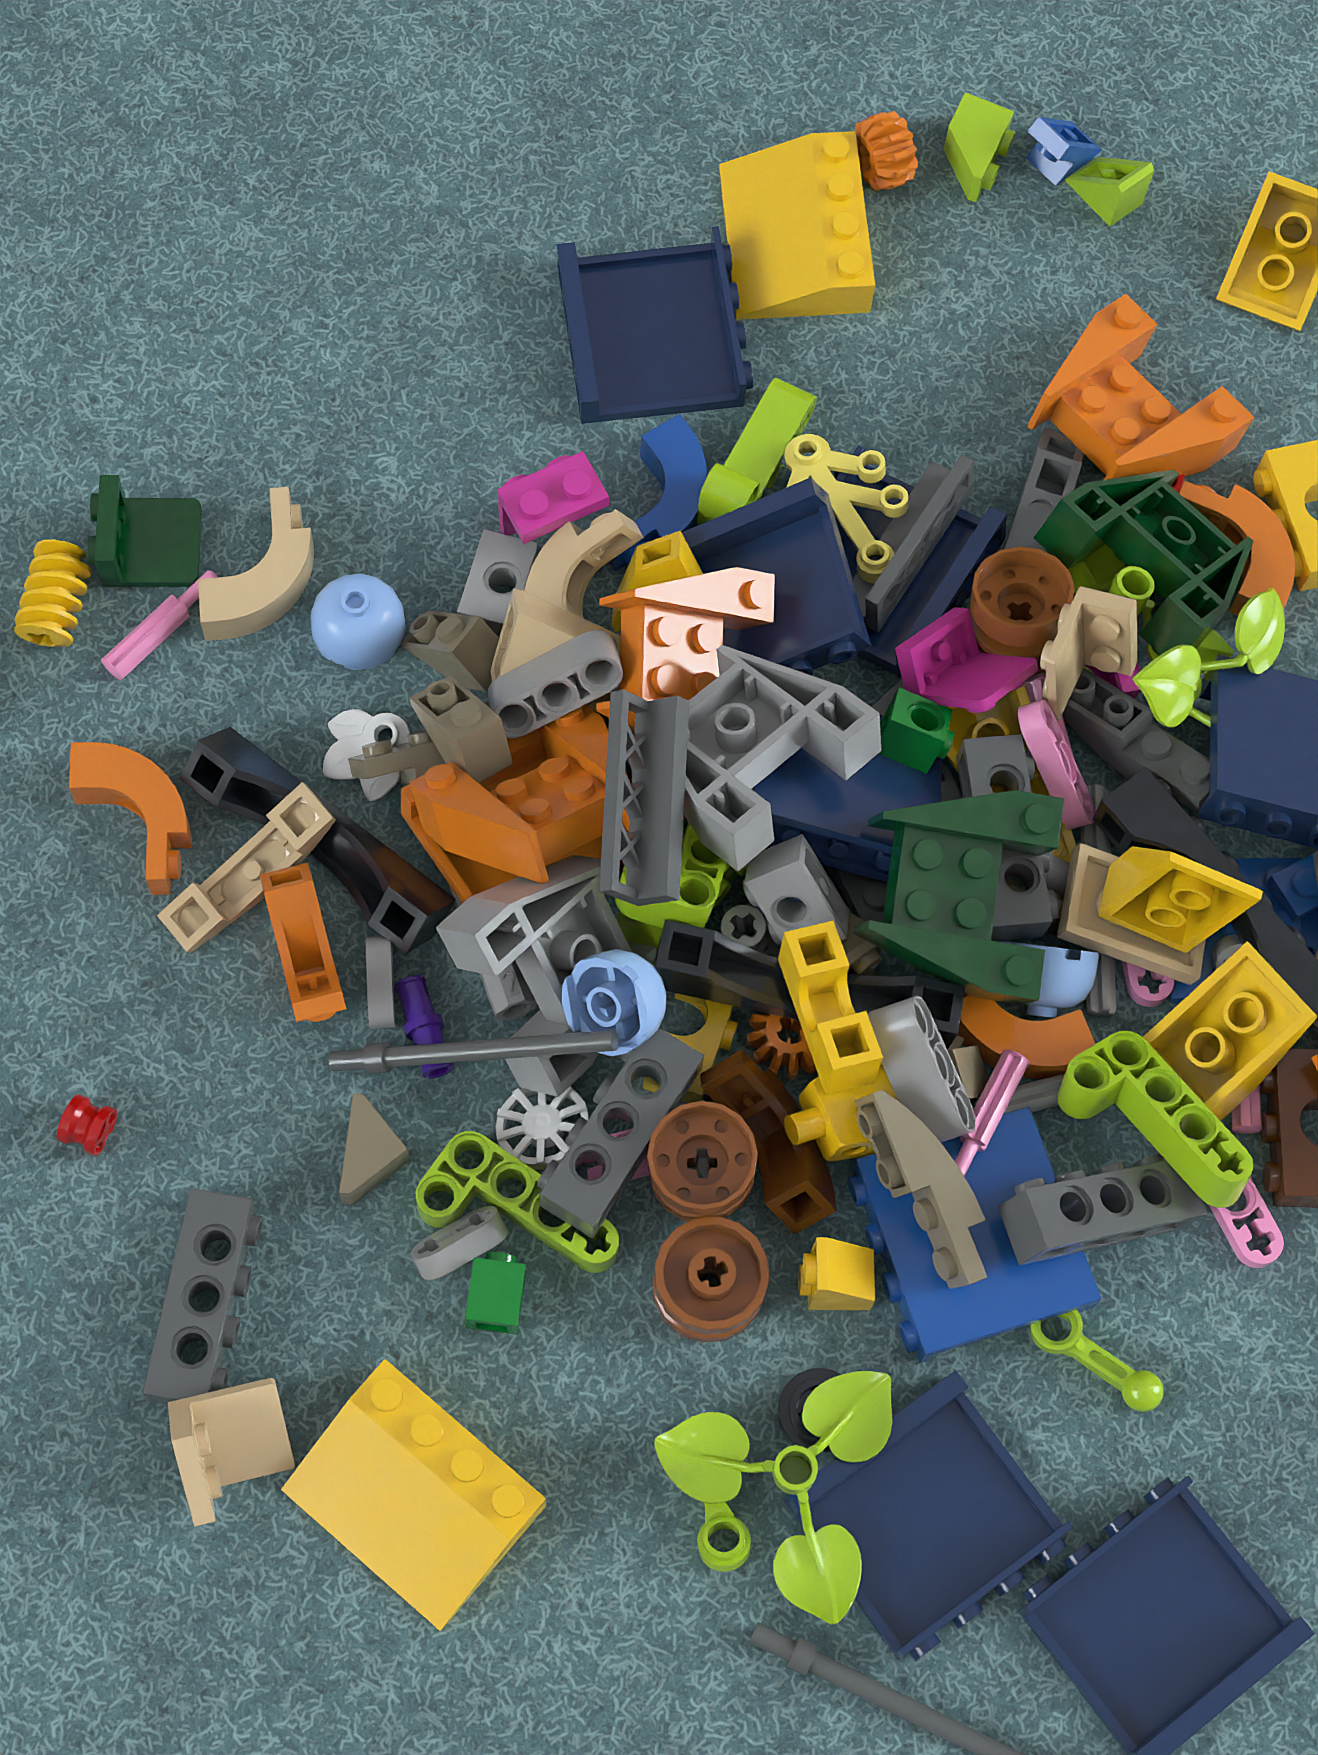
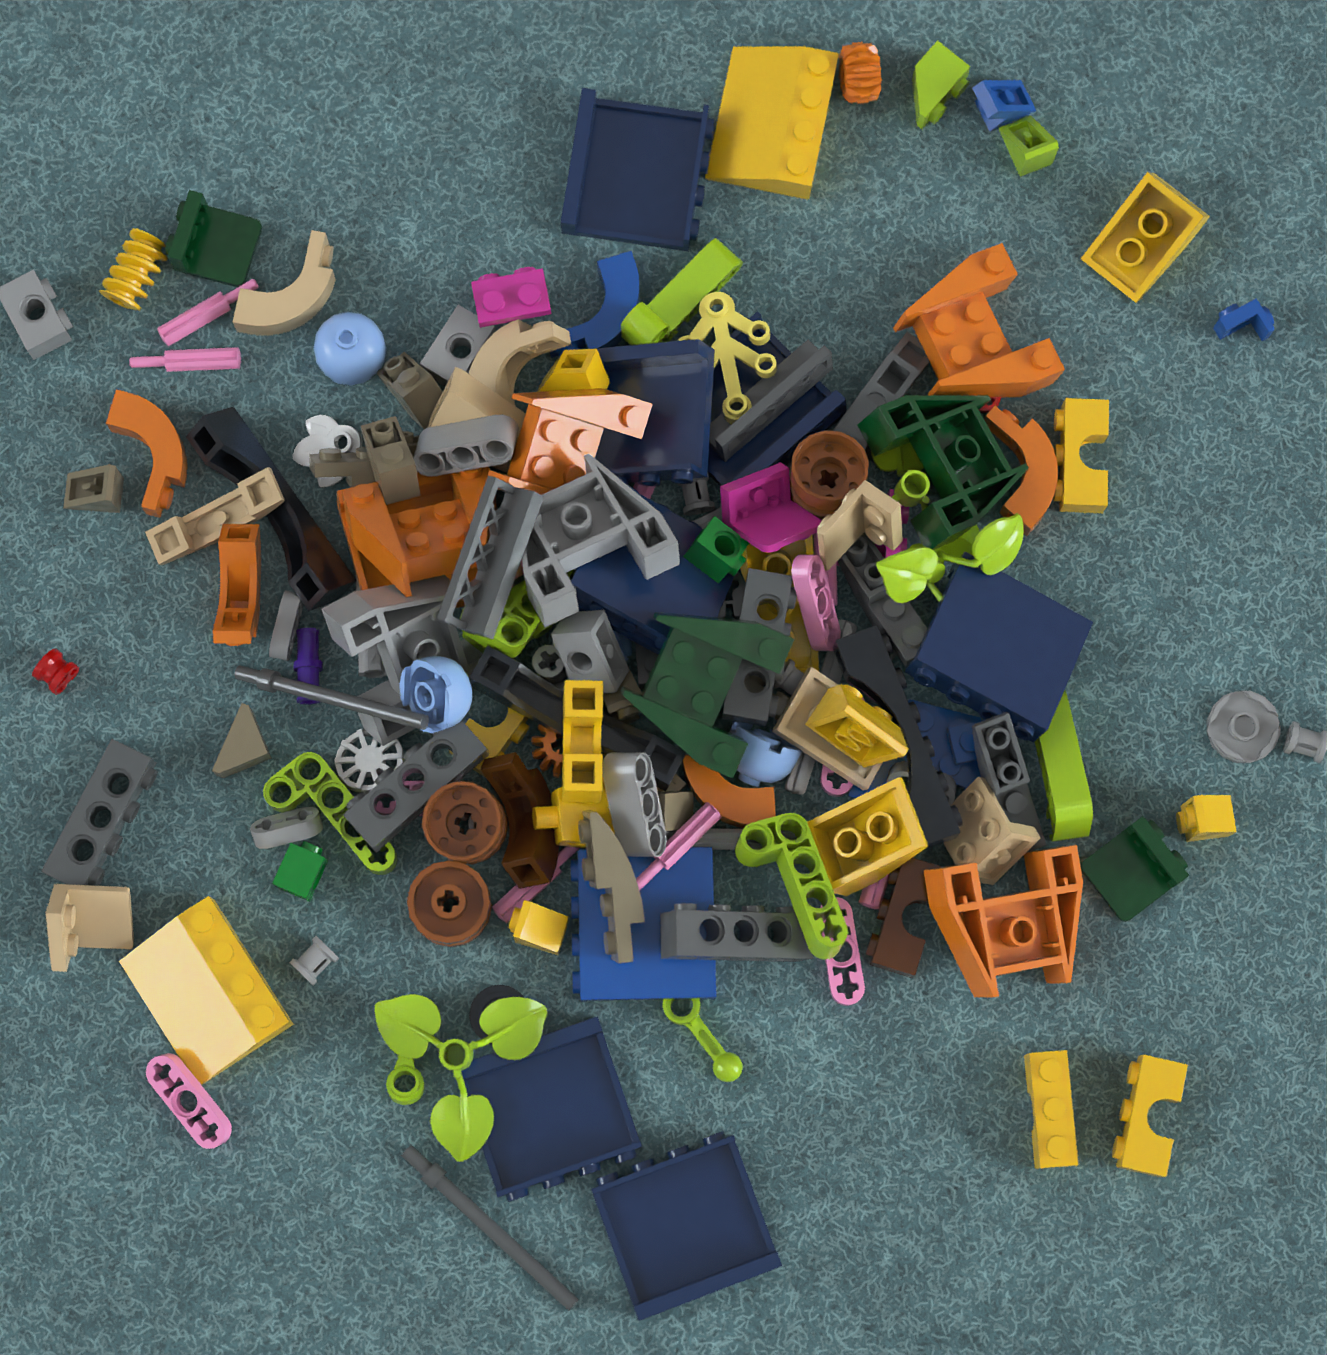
camera: 20 degrees right, 10 degrees up
(74, 878) = (94, 489): none -> dark tan slope
(157, 687) = (192, 359): none -> bright pink axle
(457, 1647) = (204, 1101): none -> bright pink beam
(549, 1409) = (314, 960): none -> light grey bush
(789, 1253) = (516, 896): none -> bright pink axle
(854, 678) = (697, 497): none -> light grey bush

